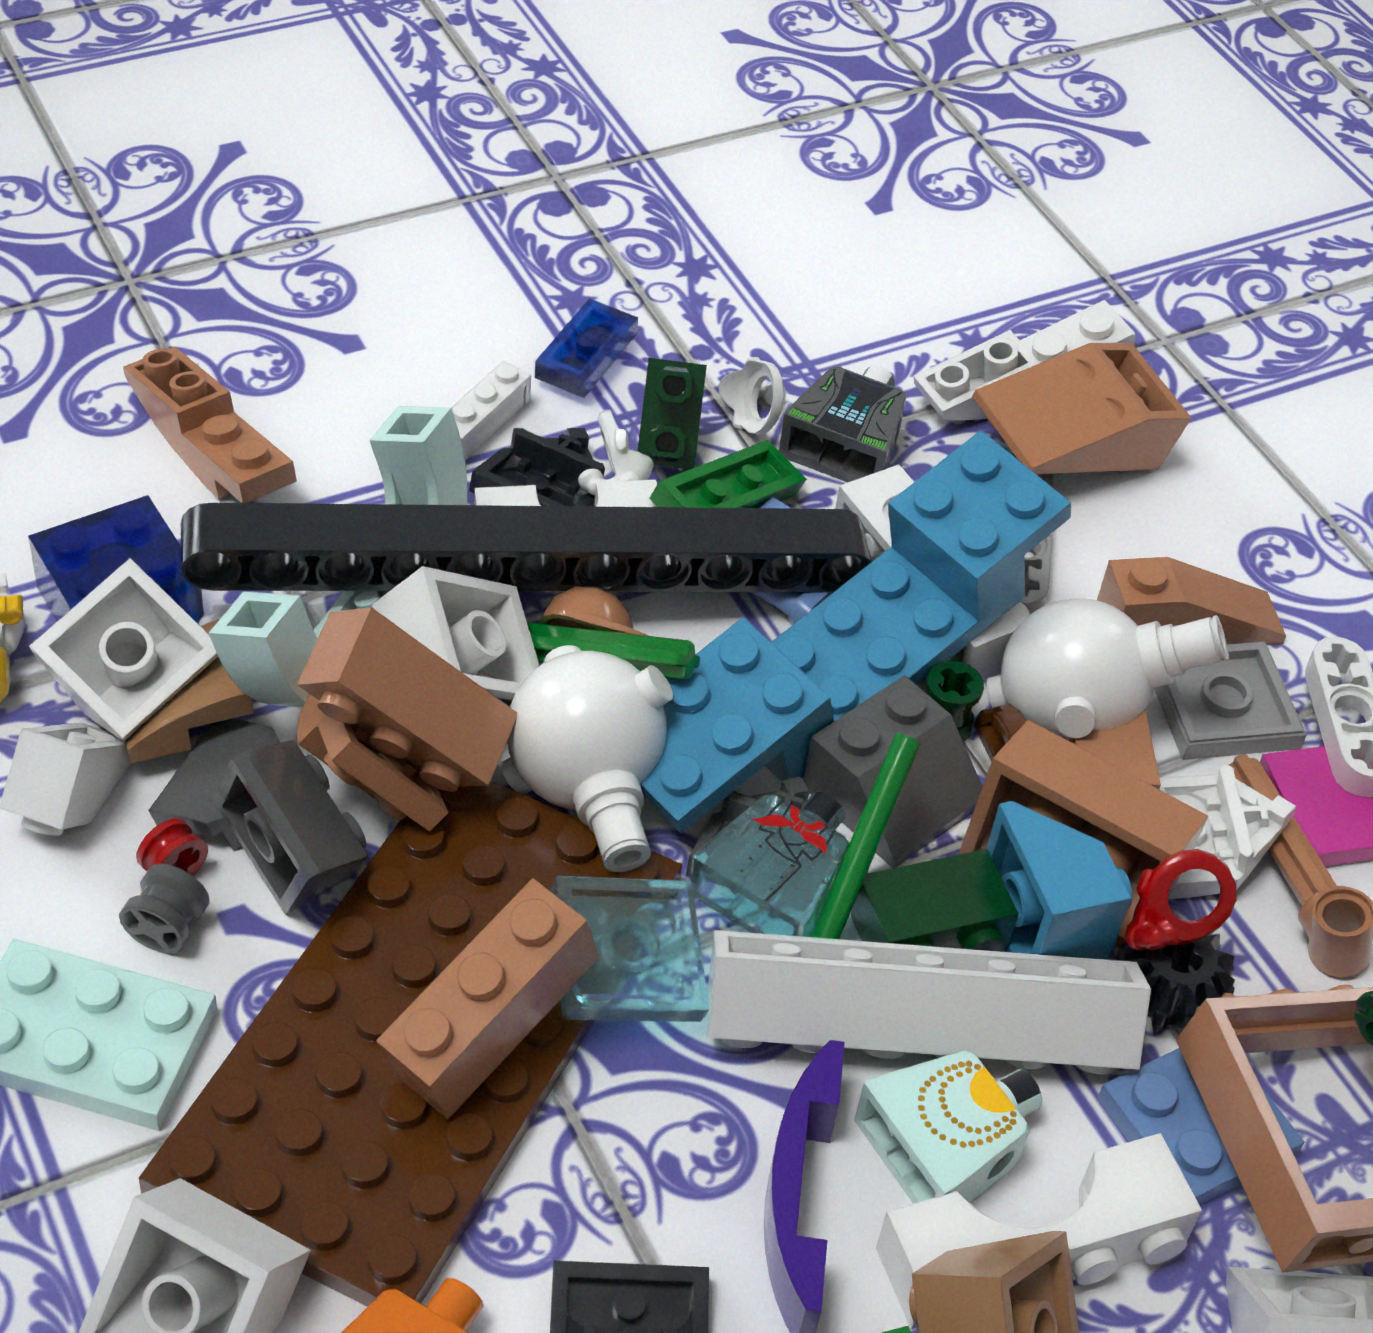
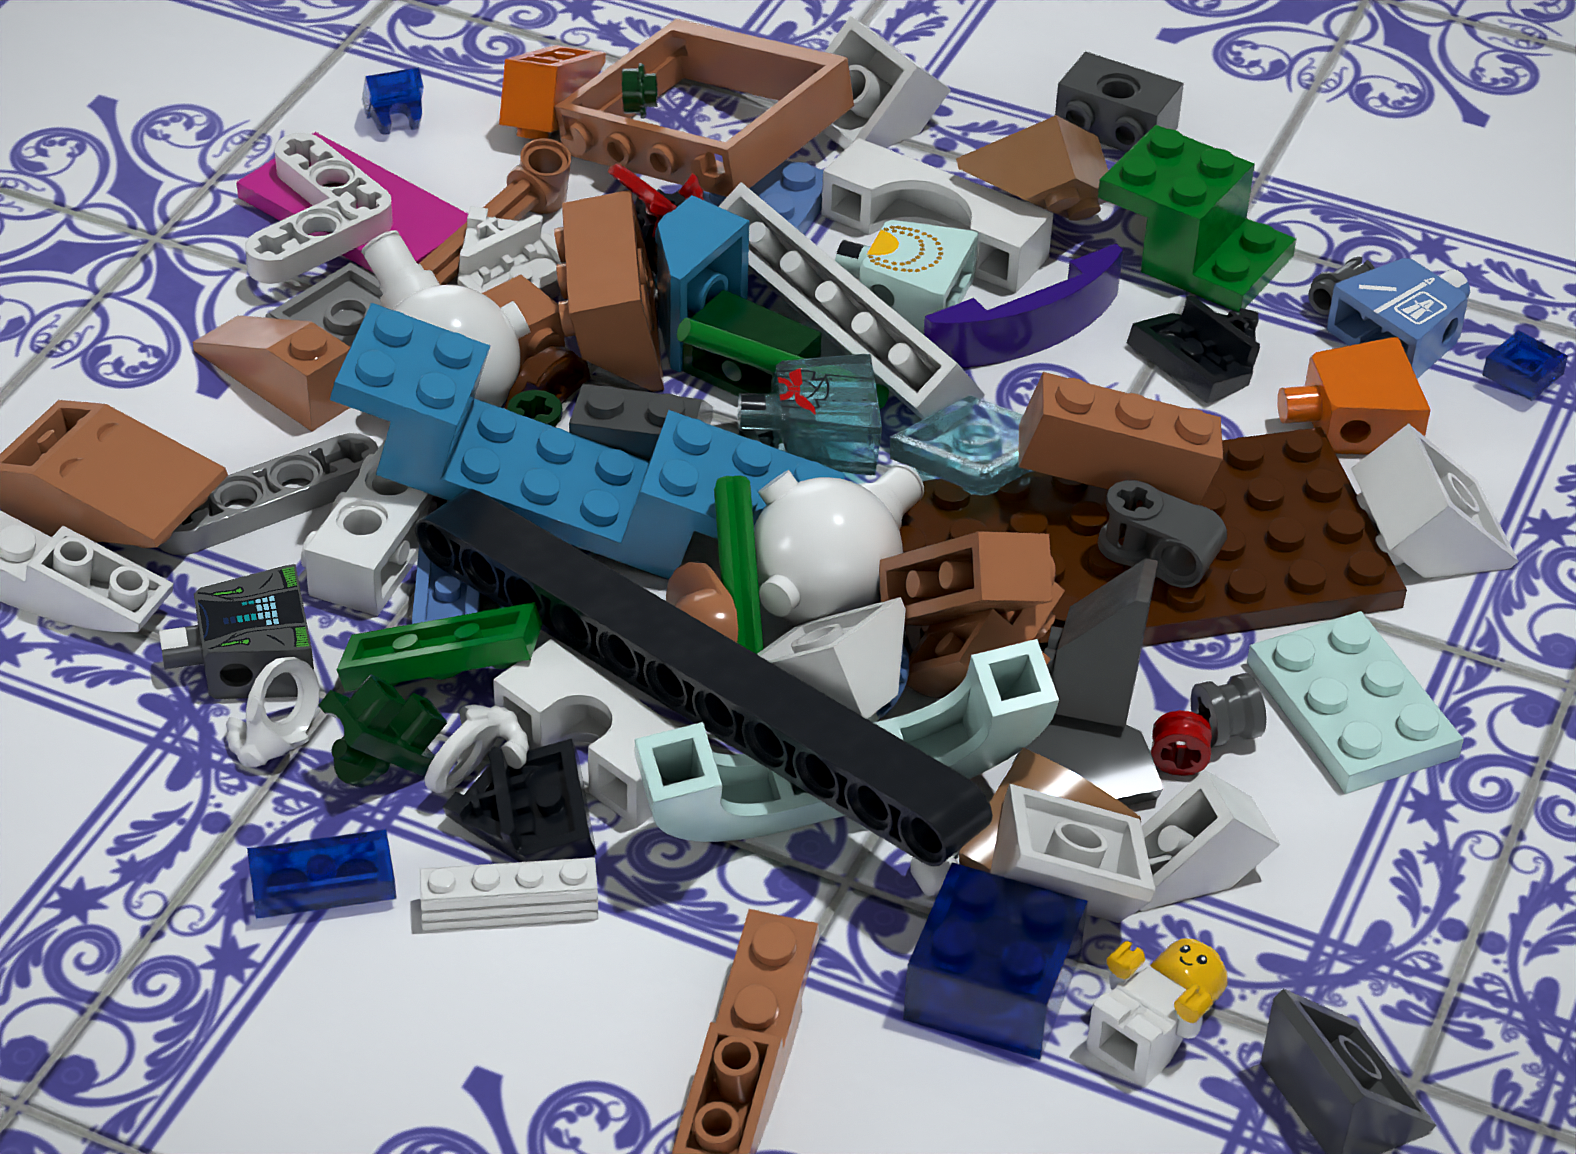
camera: 125 degrees left, 5 degrees down
(365, 976) = (1164, 529): none -> dark grey piece

